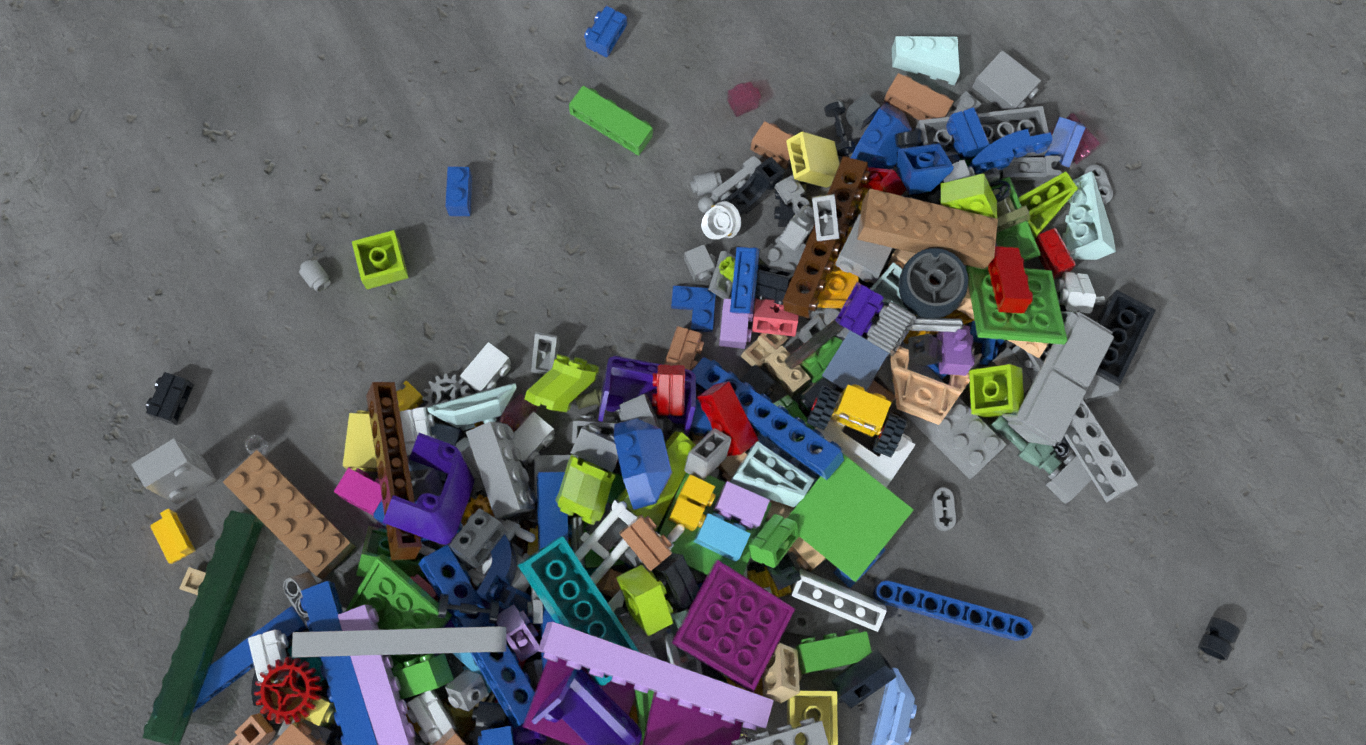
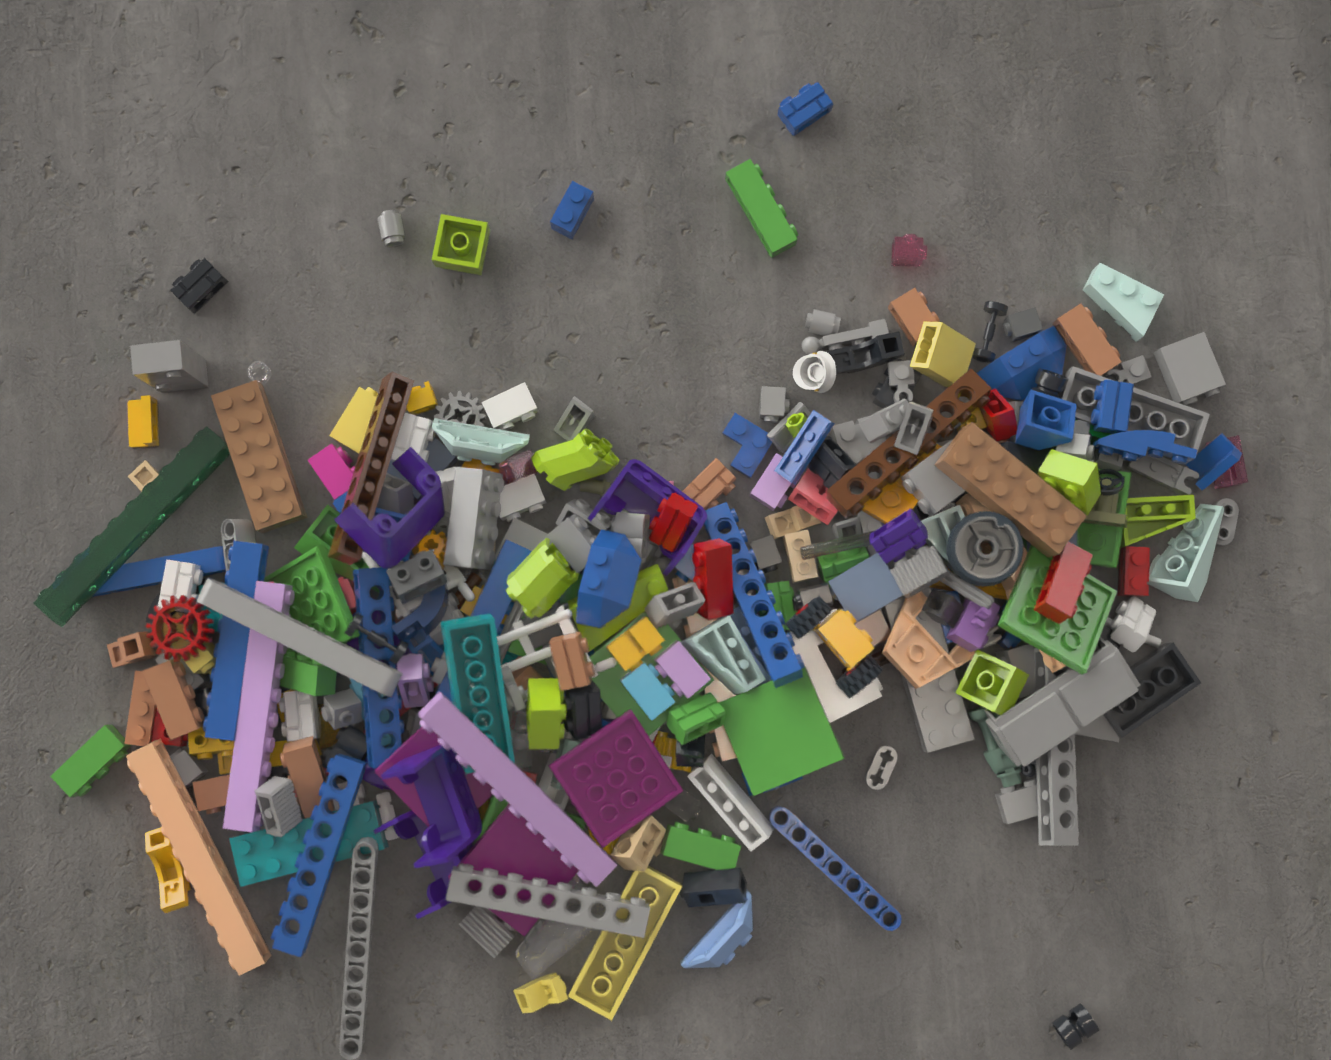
camera: 30 degrees right, 10 degrees up
(613, 595) = (516, 693): none -> light grey plate

